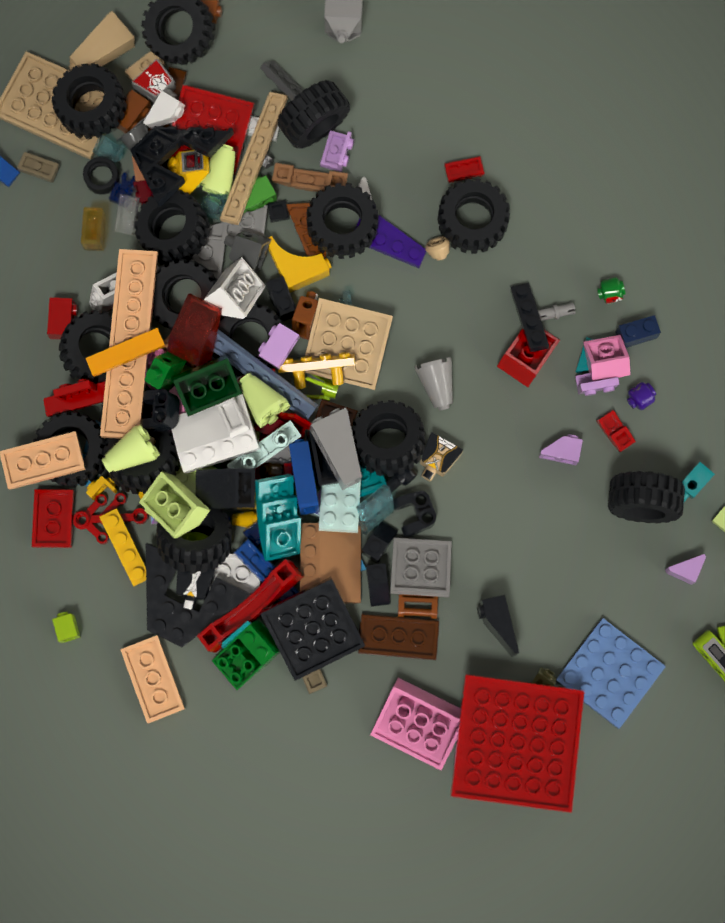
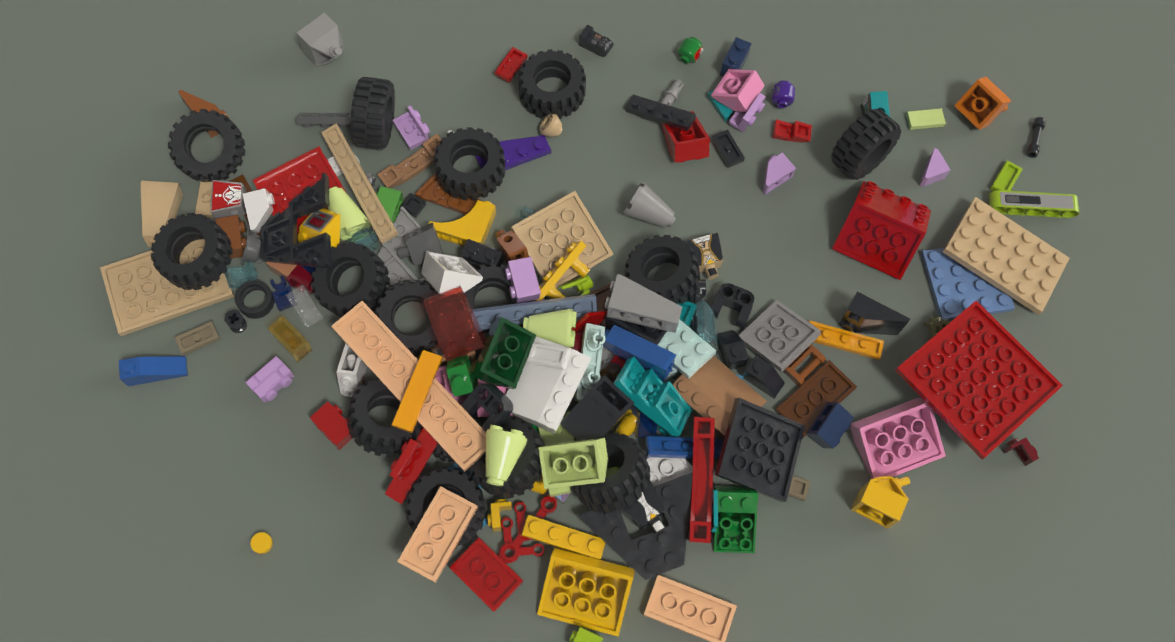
camera: 50 degrees left, 10 degrees down
(54, 244) = (270, 379): none -> lavender brick
(74, 175) = (239, 322): none -> black bush
(102, 596) = (586, 592): none -> yellow slope
(357, 747) = (882, 500): none -> yellow piece
(382, 664) = (830, 425): none -> dark blue brick
(468, 621) = (849, 341): none -> light orange tile
(499, 828) = (1024, 449): none -> dark red bracket
(547, 212) = (595, 42): none -> black leg
(550, 395) = (728, 148): none -> black plate
(592, 570) = (883, 230): none -> red bracket
(659, 686) = (1006, 255): none -> tan plate

